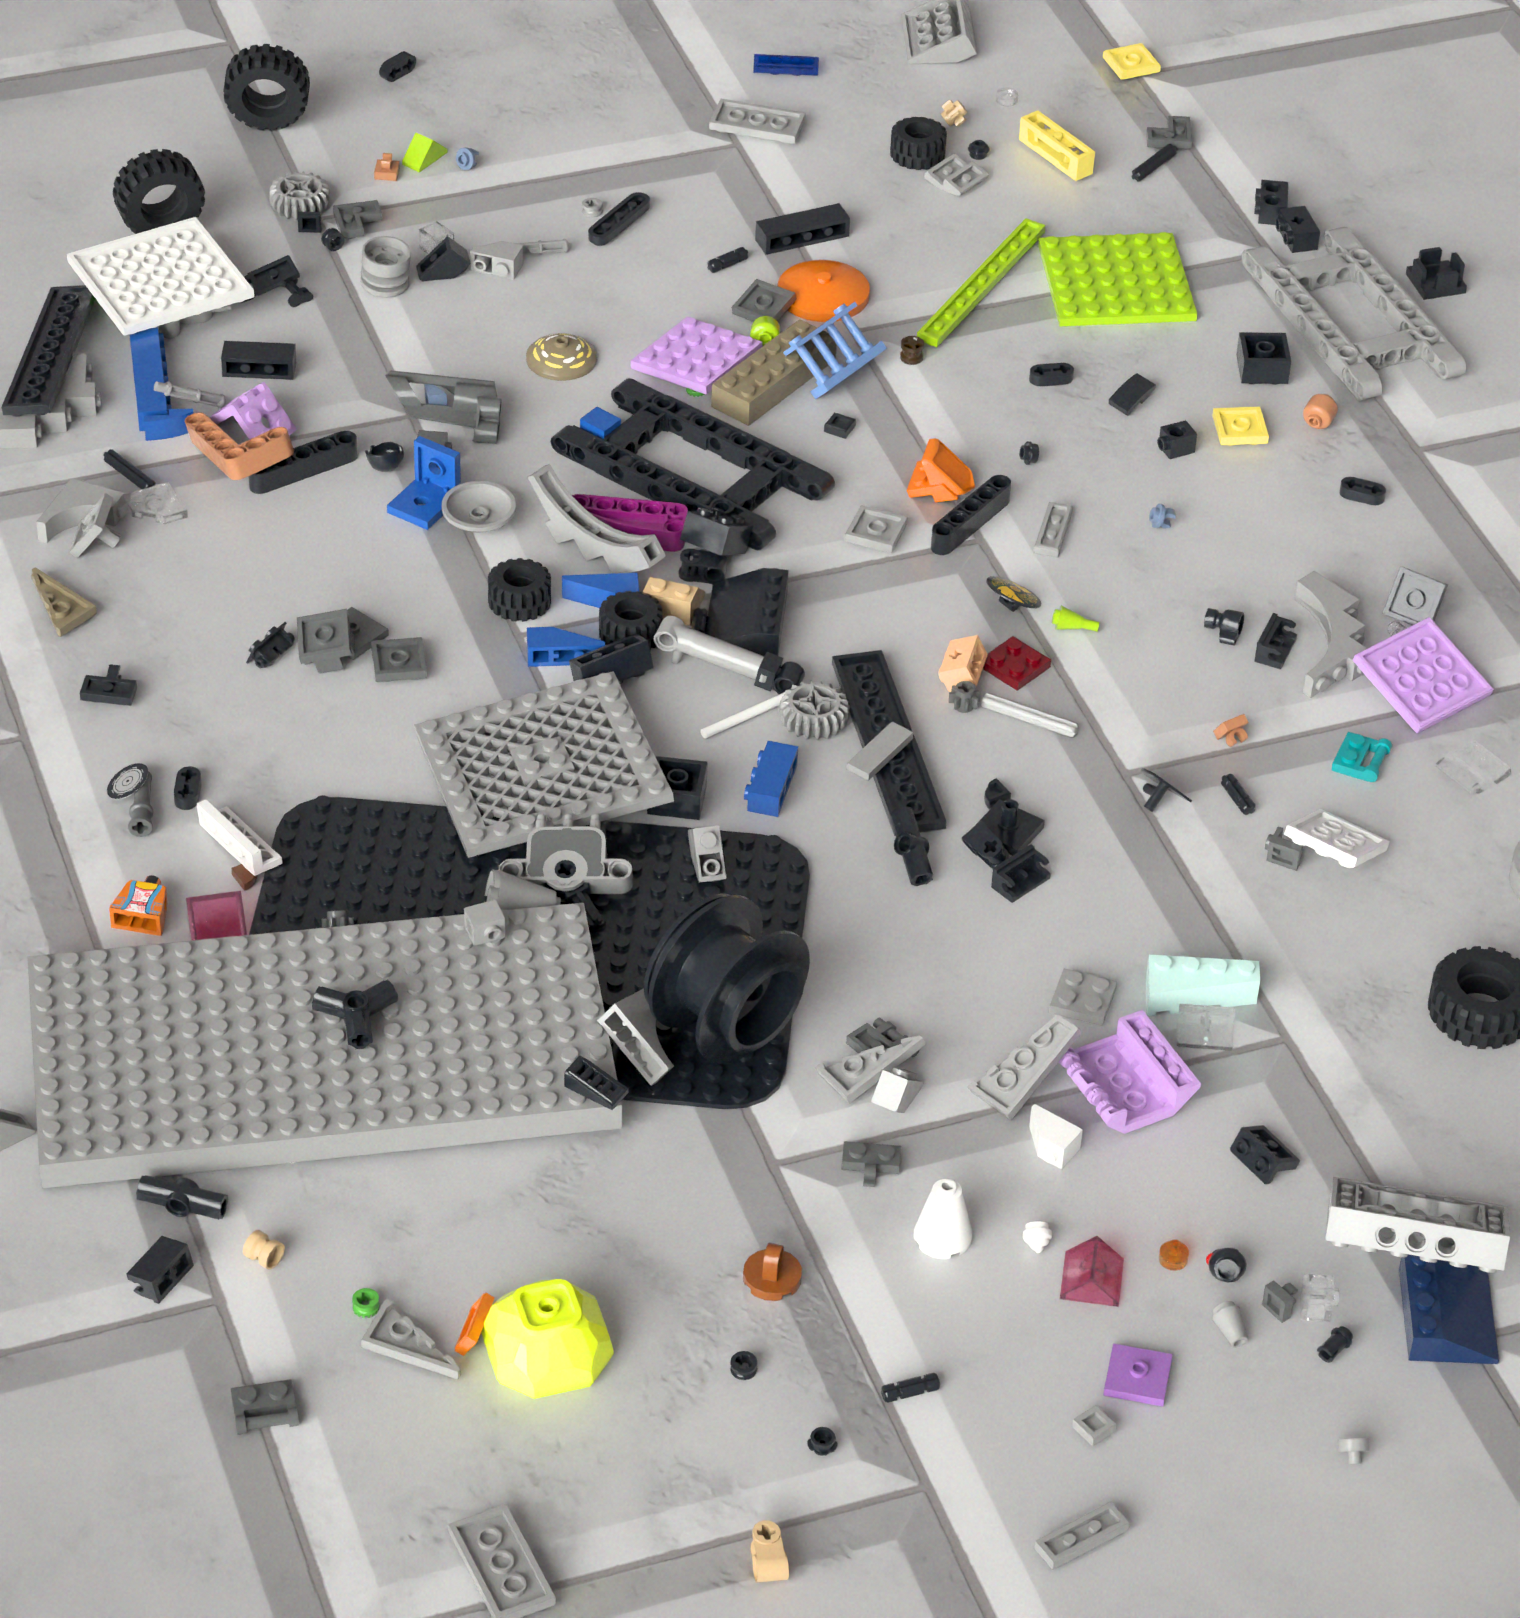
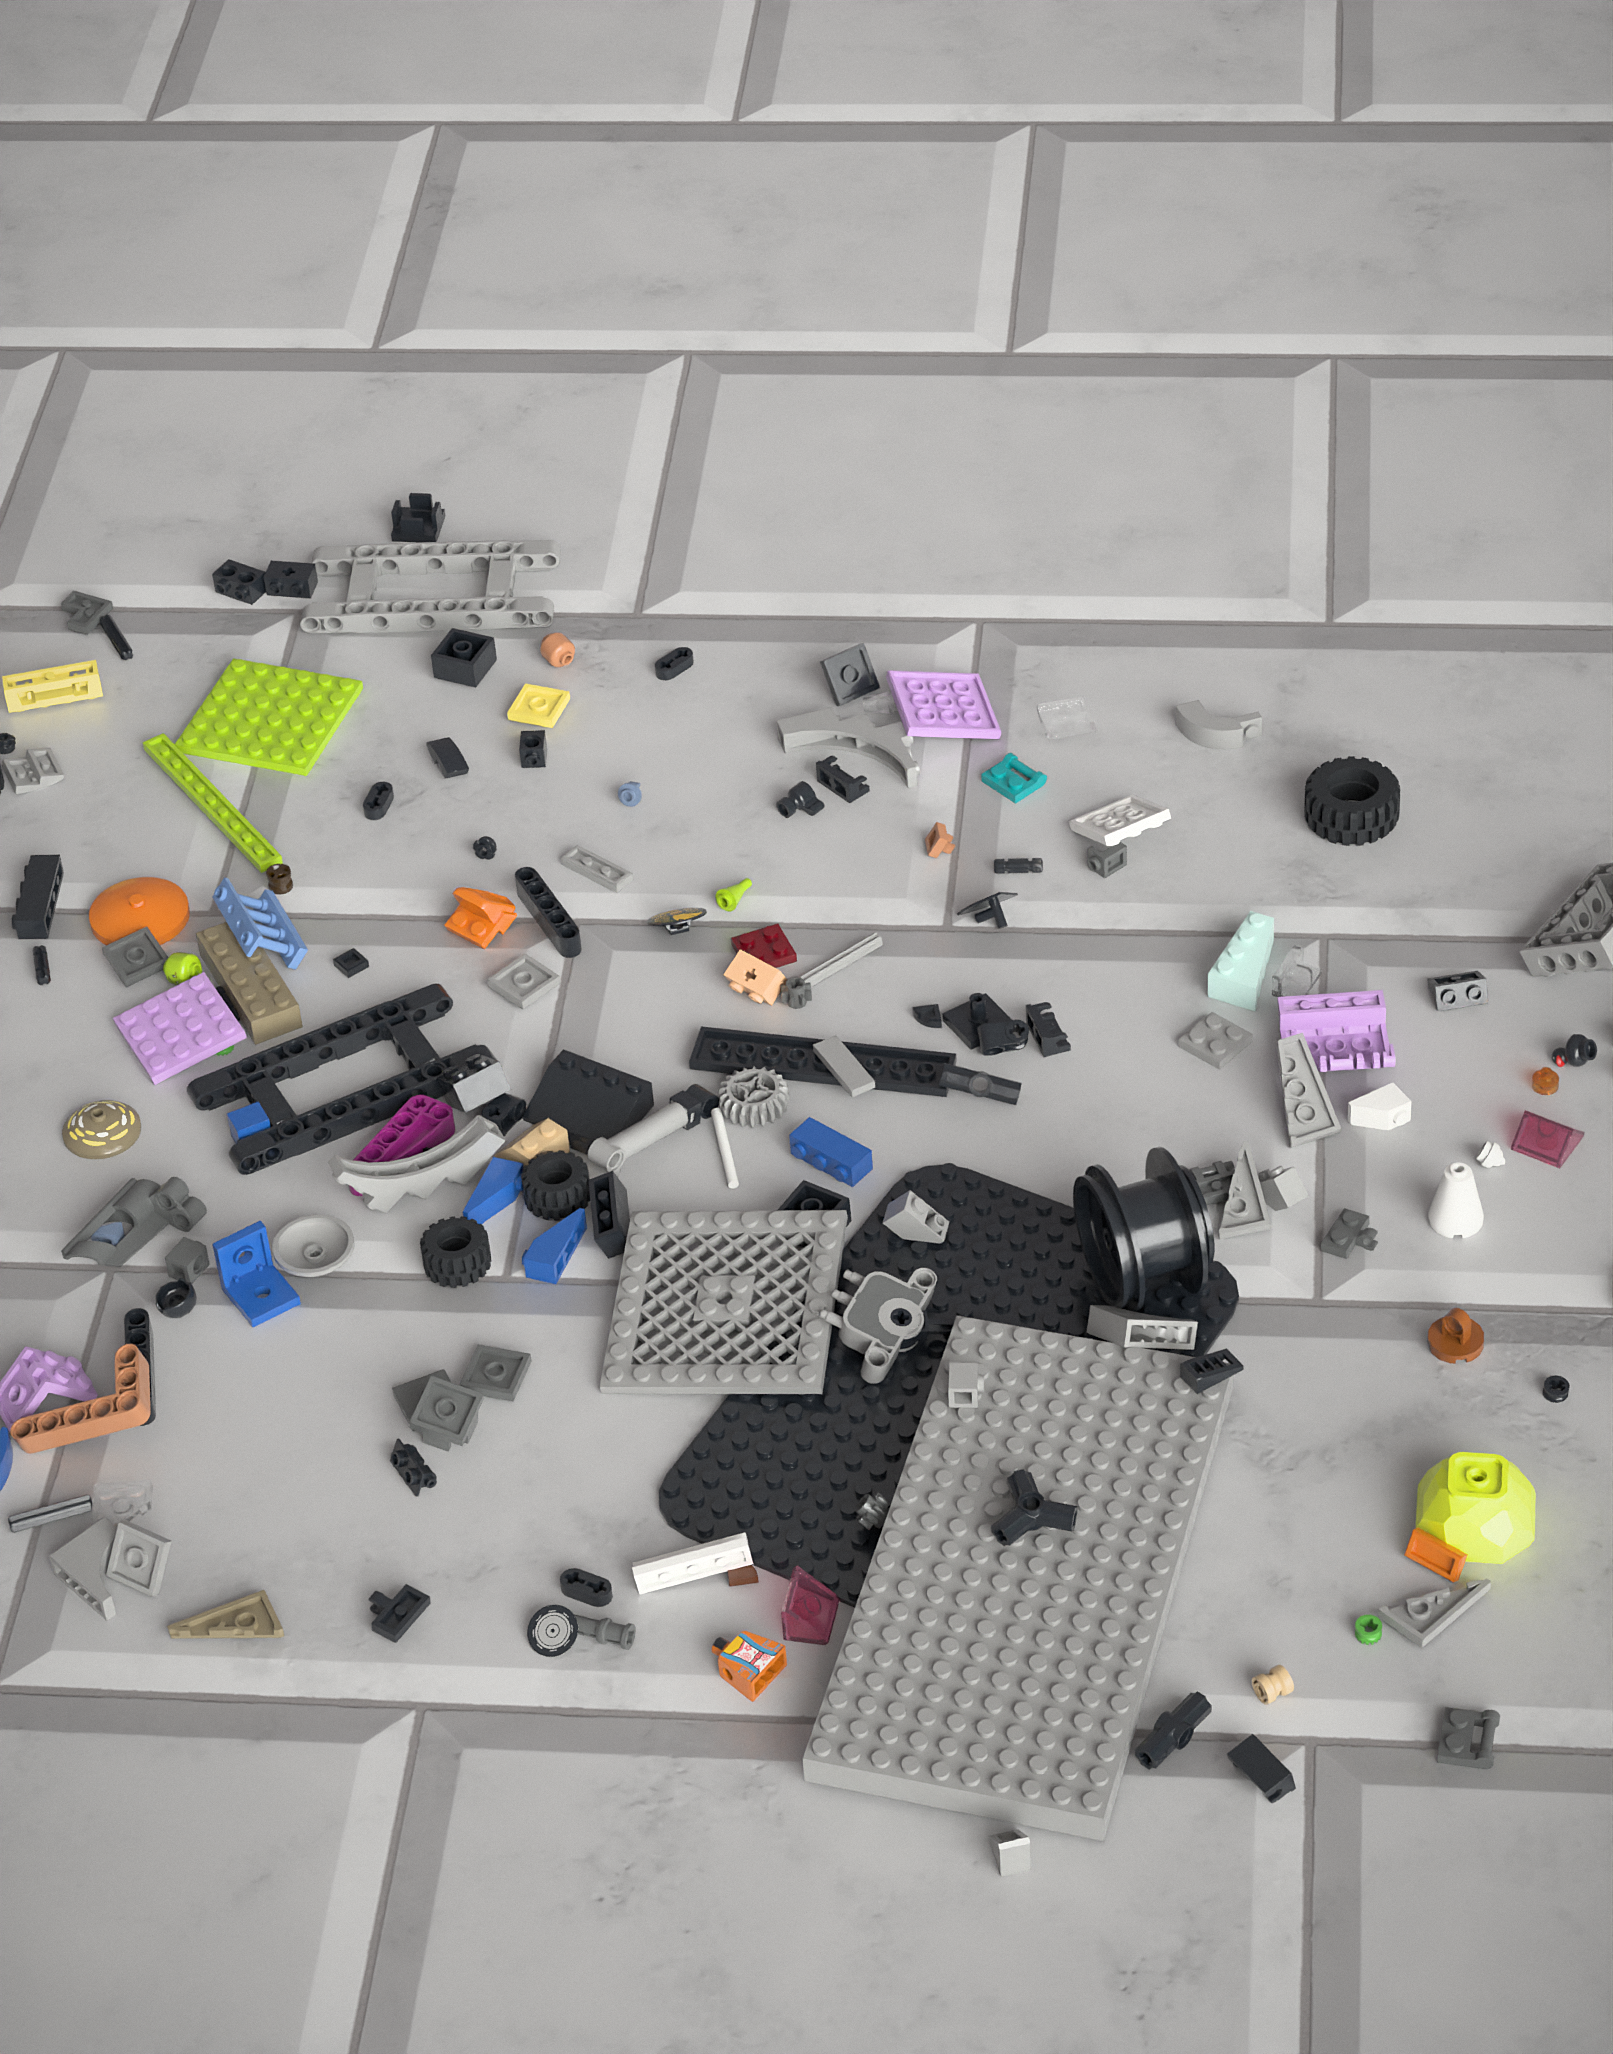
camera: 60 degrees left, 0 degrees up
(517, 893) = (910, 1372): light grey cone -> none

